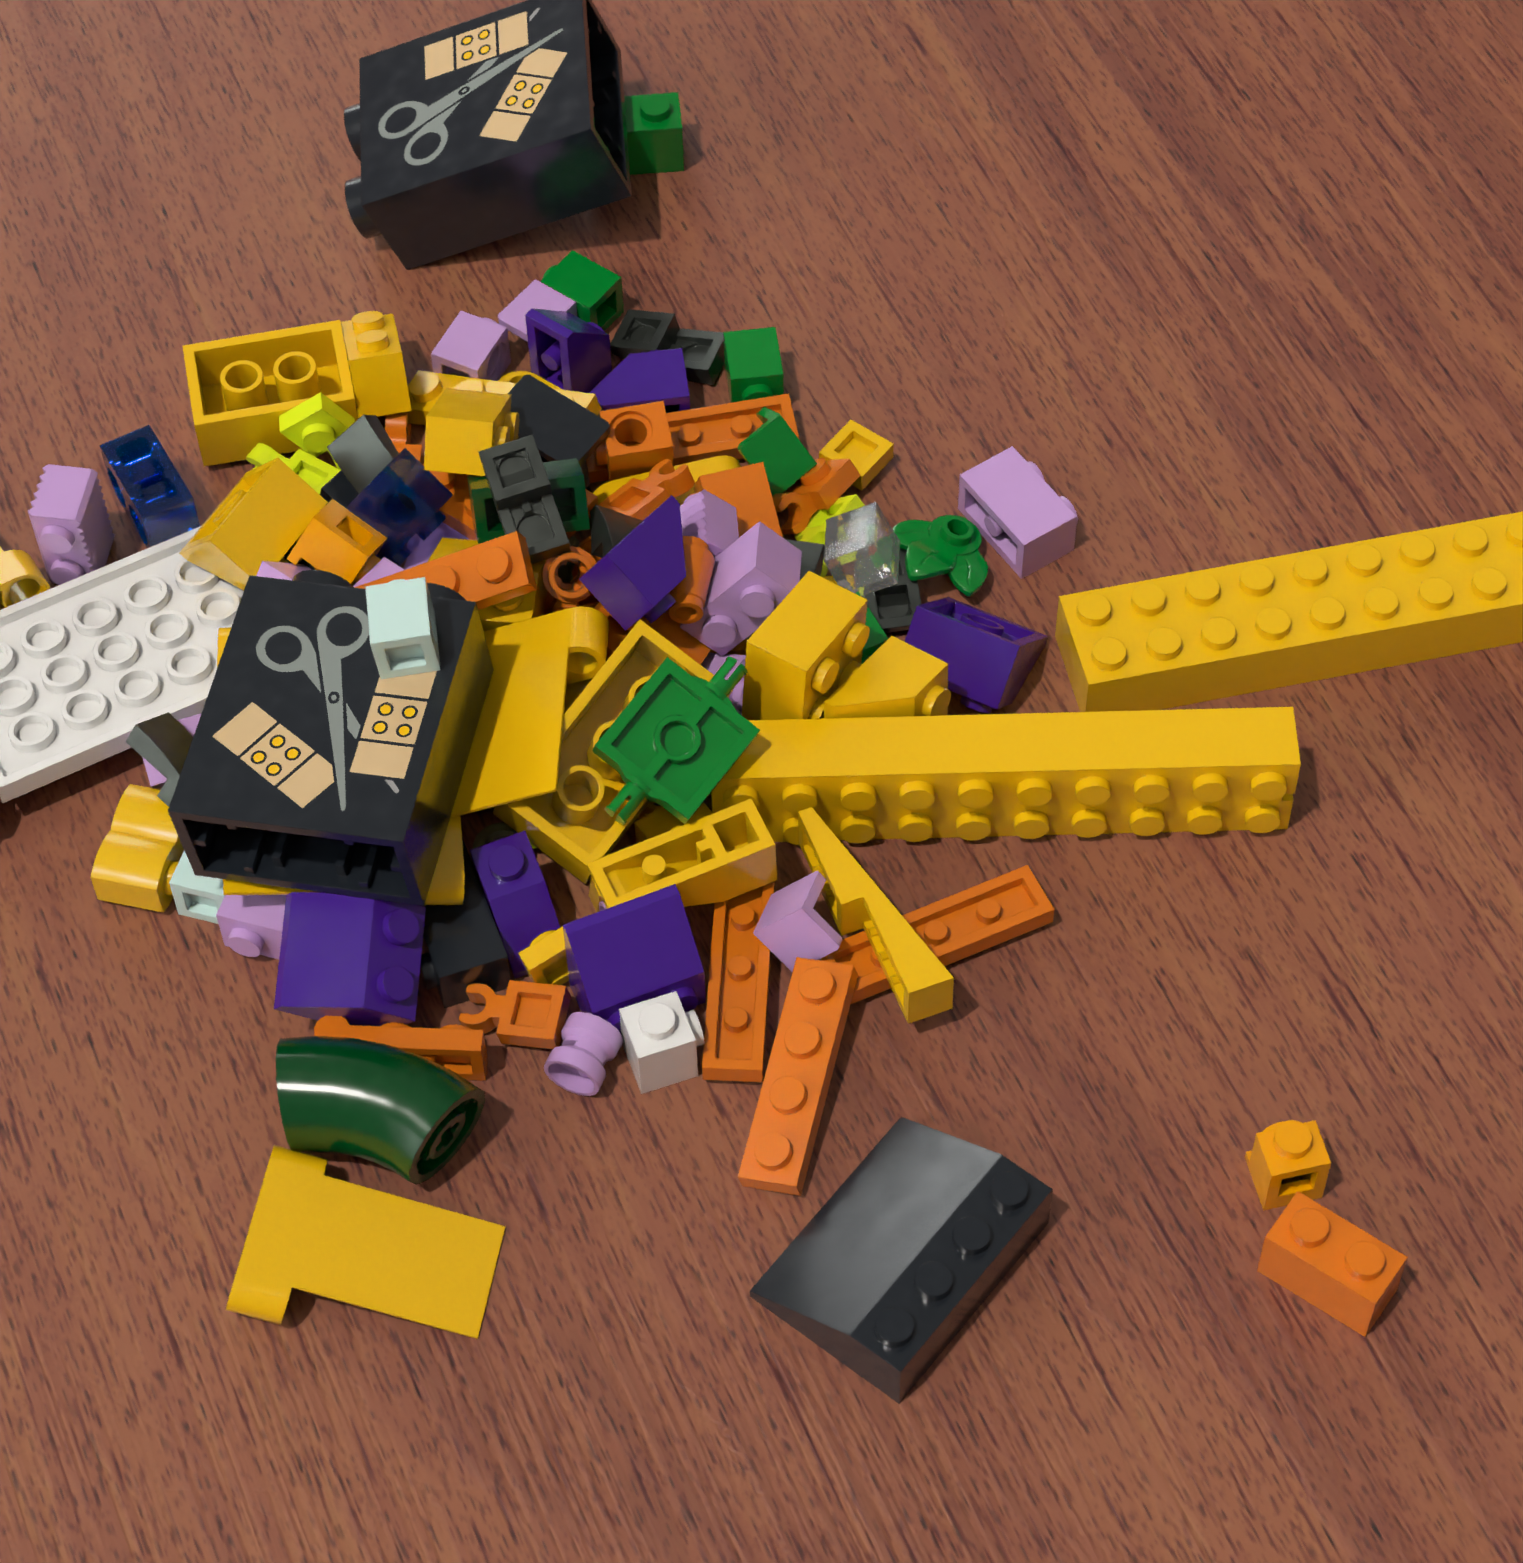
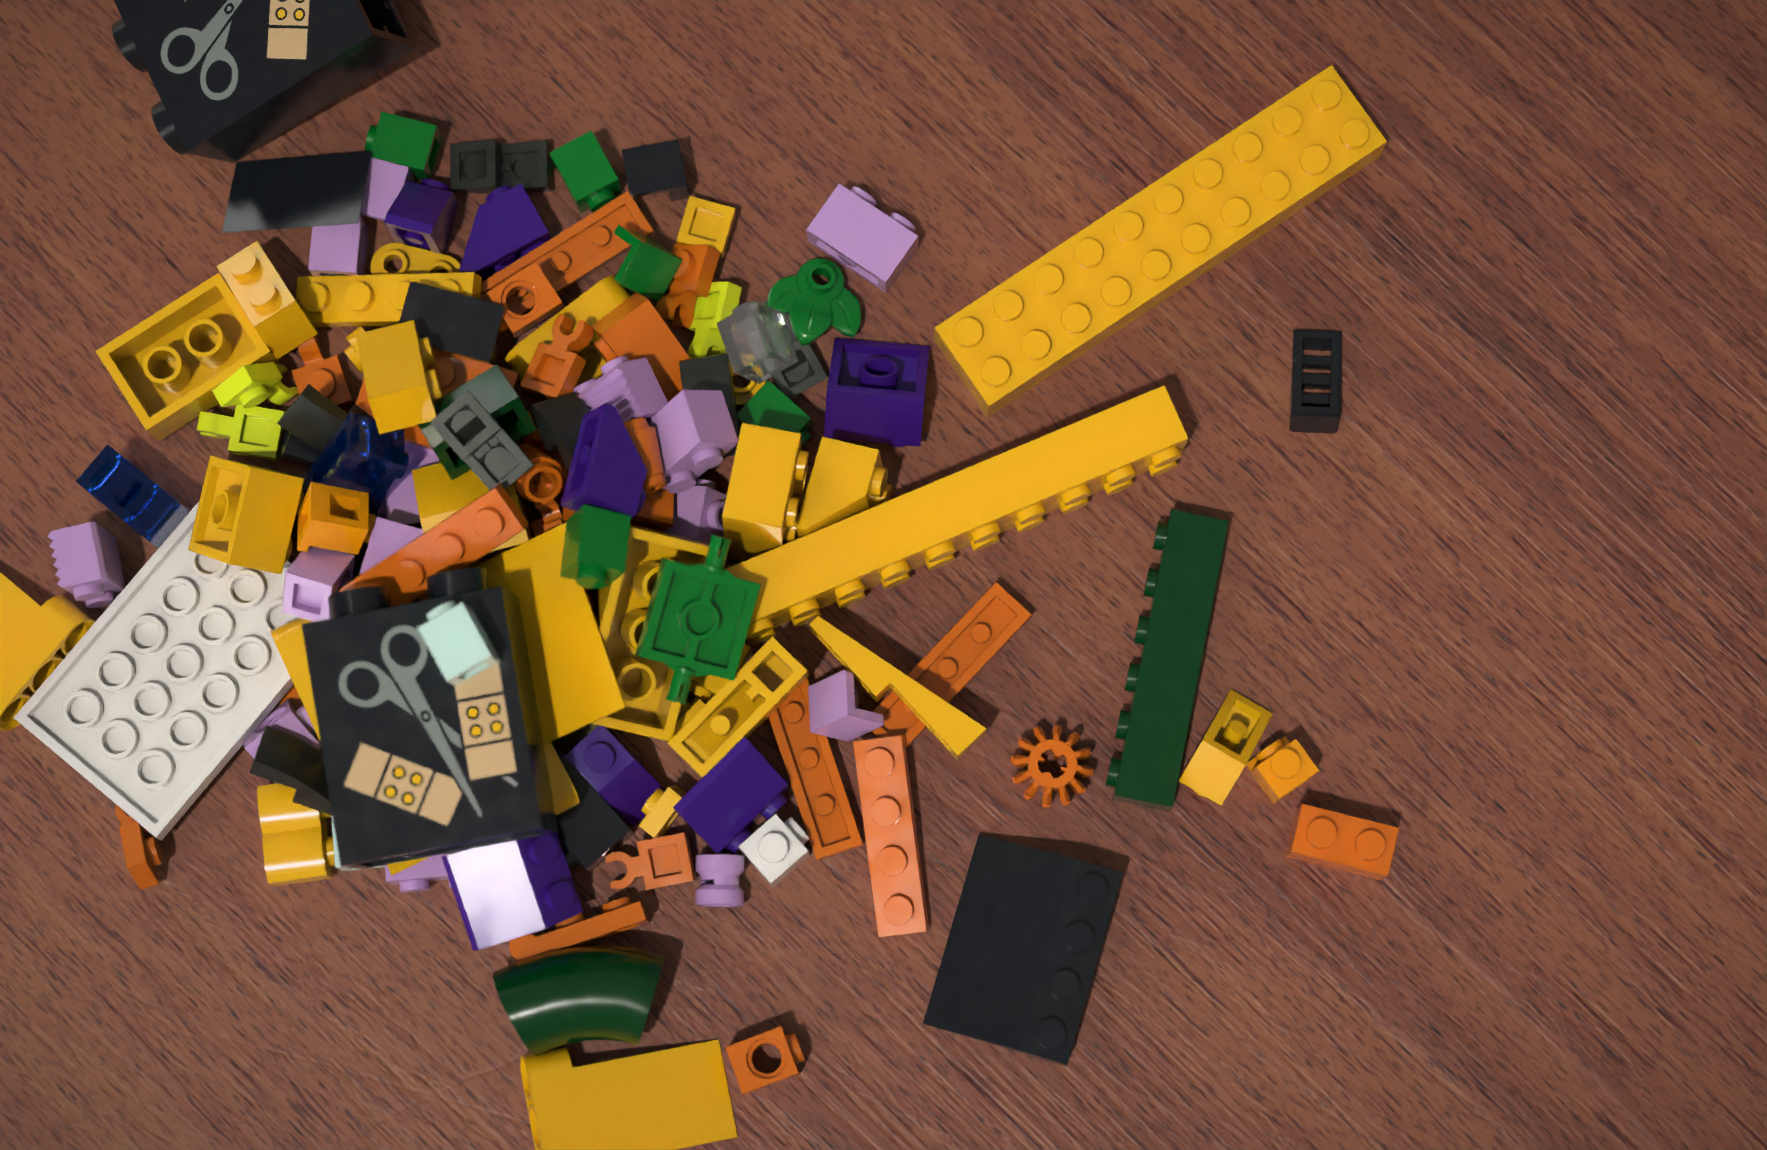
camera: 20 degrees left, 25 degrees up
(455, 294) = (297, 192): none -> black sticker
(534, 1233) = (742, 1059): none -> orange brick
(597, 624) = (595, 546): none -> green brick
(829, 382) = (656, 170): none -> black panel
(1029, 1087) = (1058, 751): none -> orange gear
(1192, 1012) = (1169, 660): none -> dark green brick
(1221, 1119) = (1225, 747): none -> yellow slope
(1468, 805) = (1315, 411): none -> black slope

